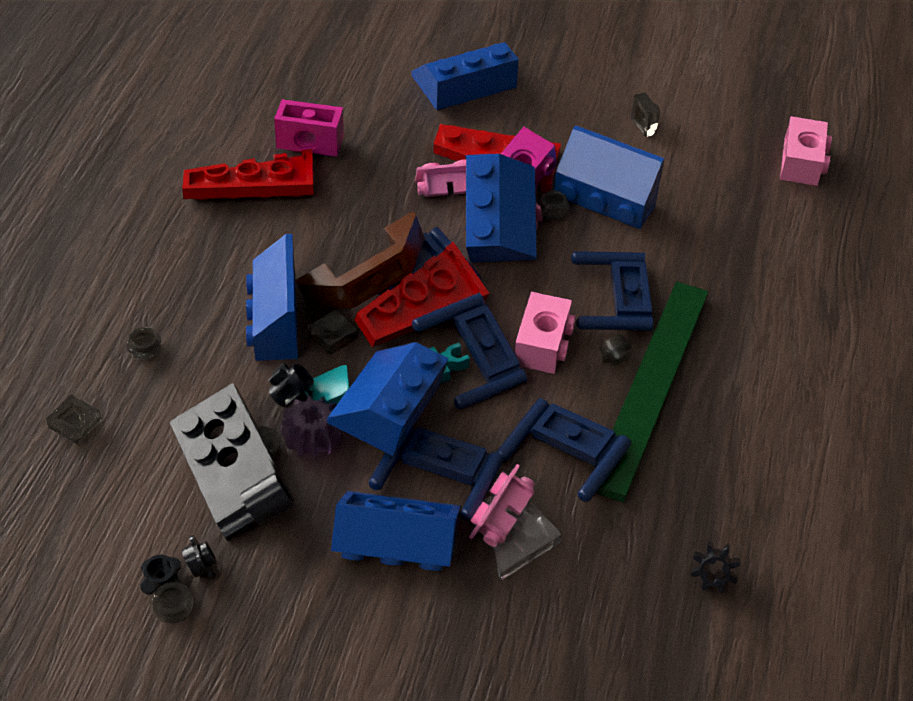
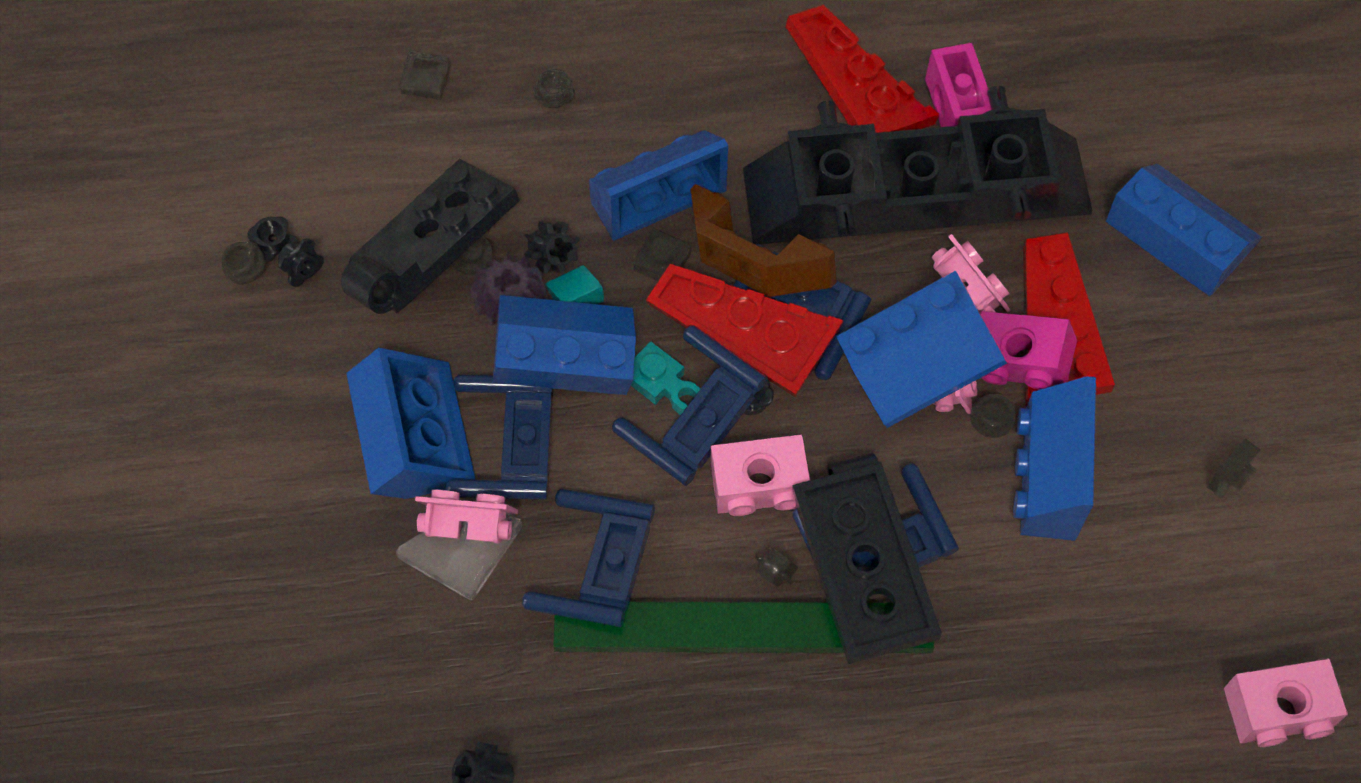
camera: 70 degrees right, 15 degrees up
(358, 178) = (869, 182): none -> black piece
(607, 292) = (858, 513): none -> black hinge

